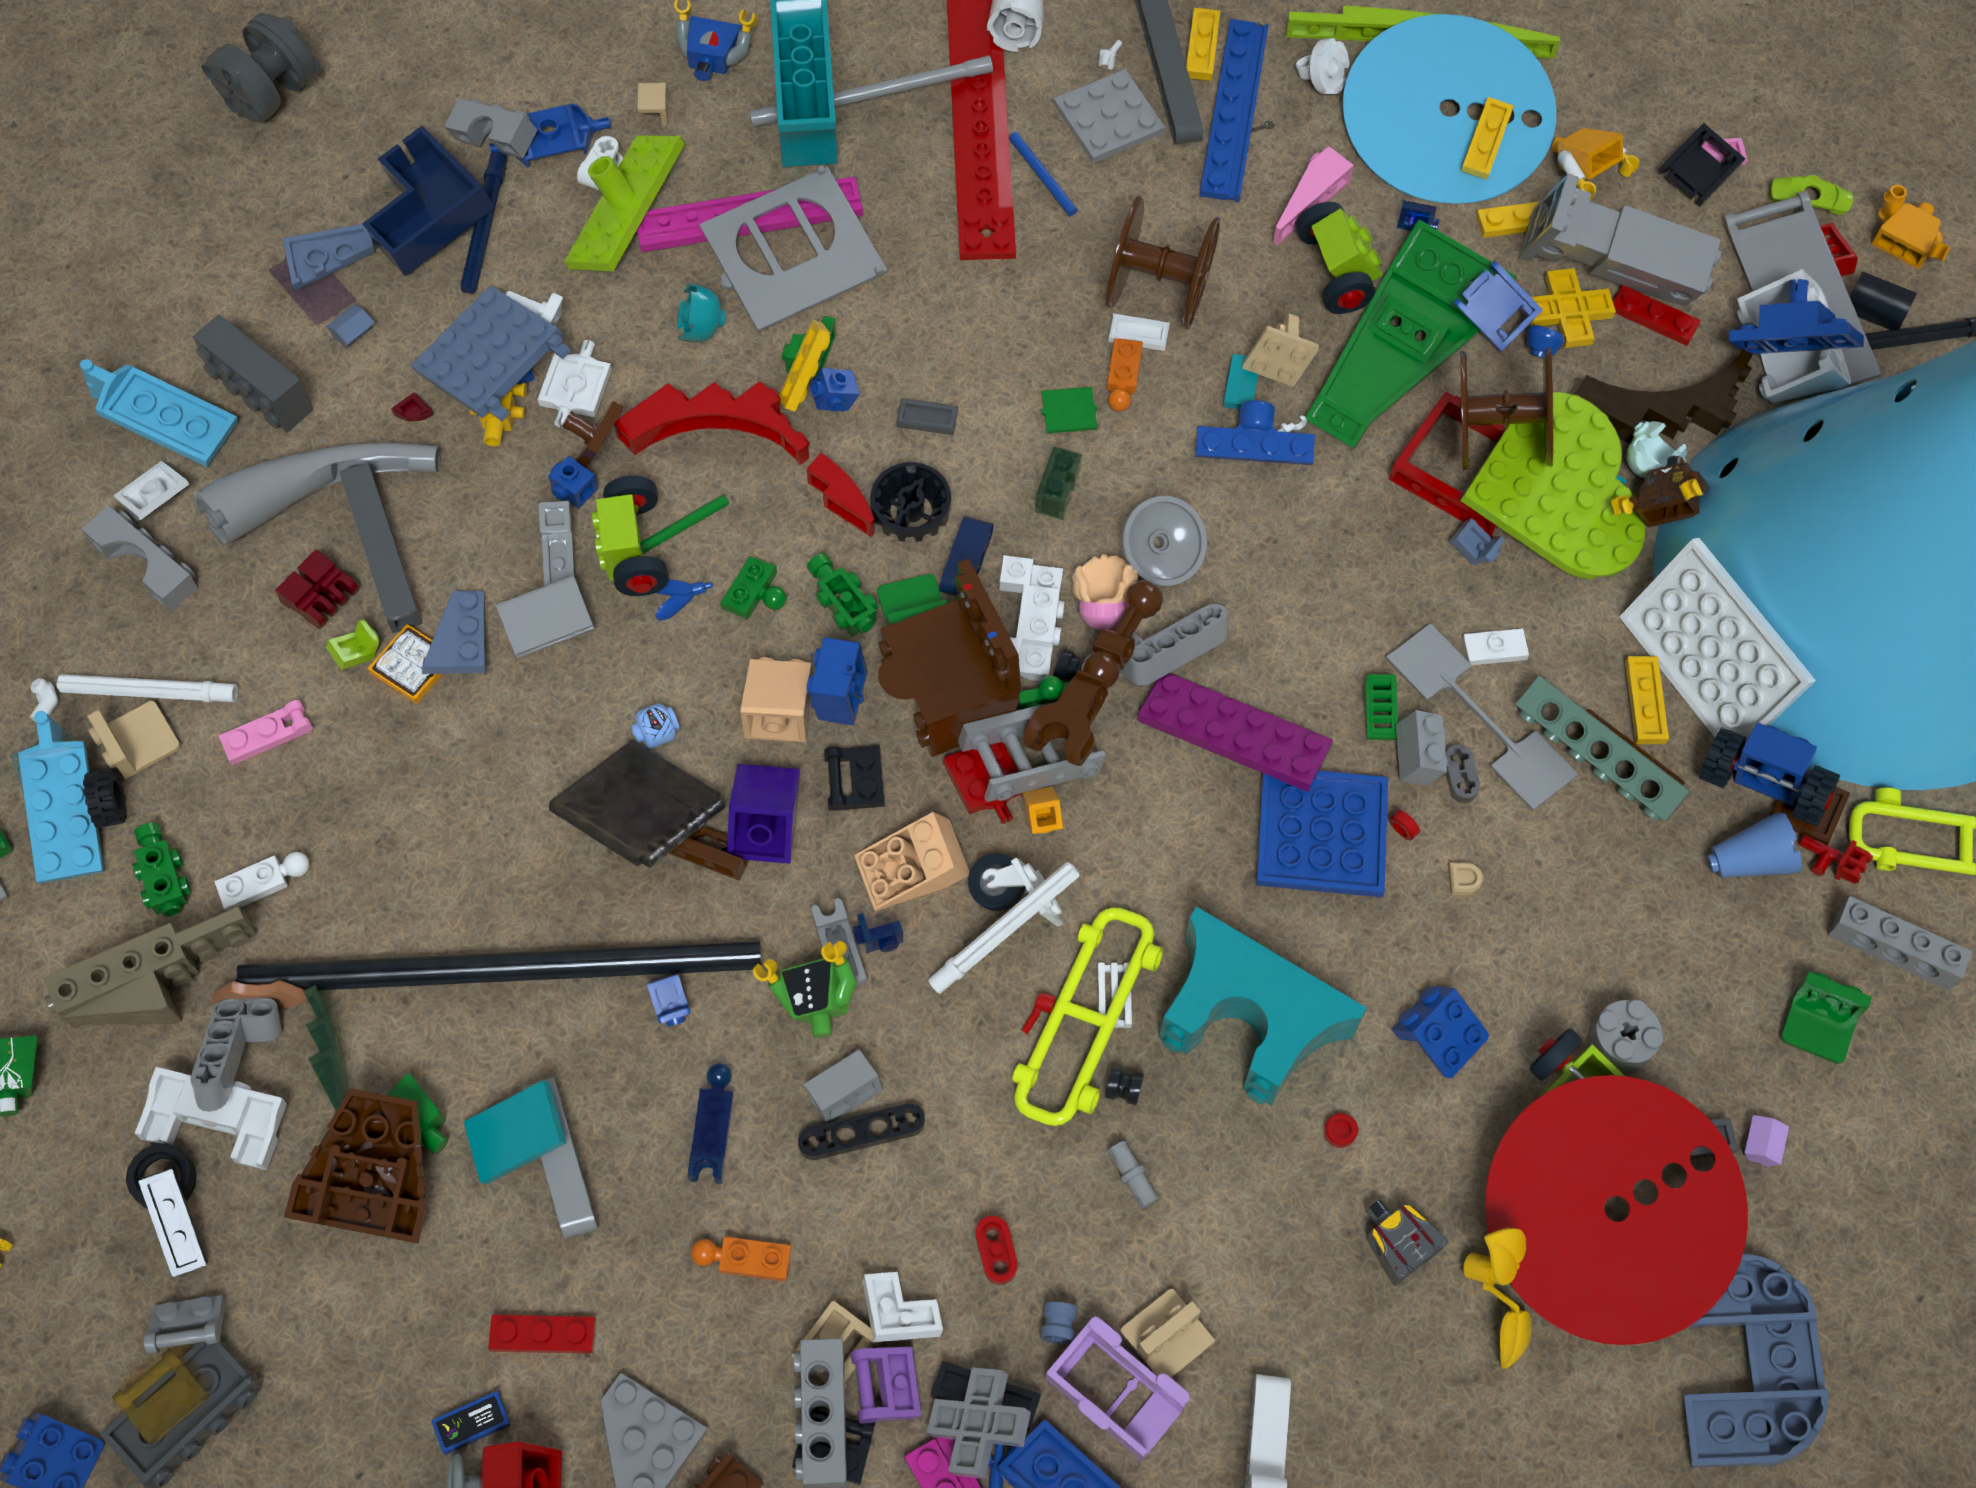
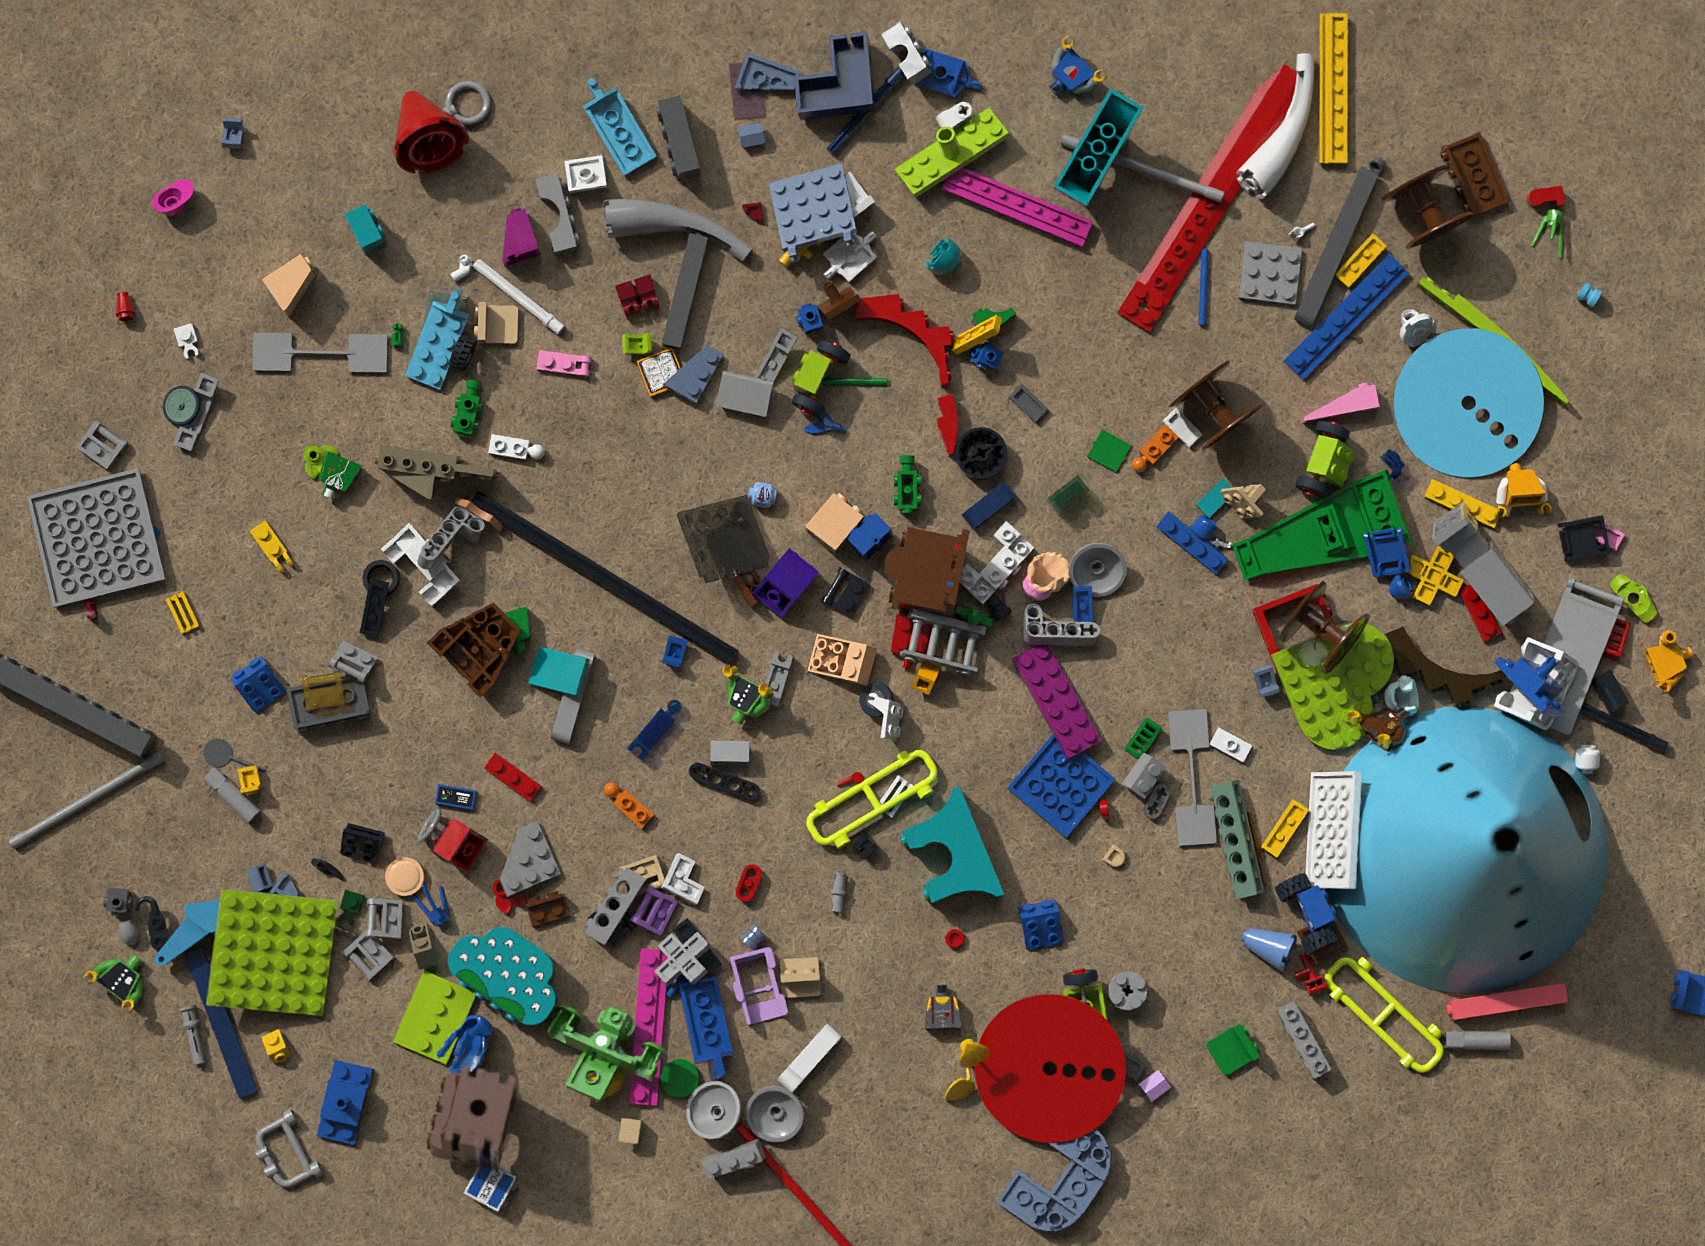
camera: 30 degrees right, 20 degrees up
(106, 615) = (519, 238): none -> magenta slope
(330, 1061) = (492, 574): clear green slope -> none
(653, 99) = (1011, 92): tan panel -> none
(751, 587) = (864, 446): green plate -> none
(834, 271) = (1041, 276): light grey door -> none
(879, 938) = (801, 691): clear blue bracket -> none
(909, 598) = (941, 514): green bracket -> none
(956, 967) = (826, 731): white axle -> none
(1087, 691) = (1004, 626): reddish brown piece -> none
(1177, 596) = (1082, 604): none -> blue plate
(1487, 138) = (1473, 438): yellow plate -> none

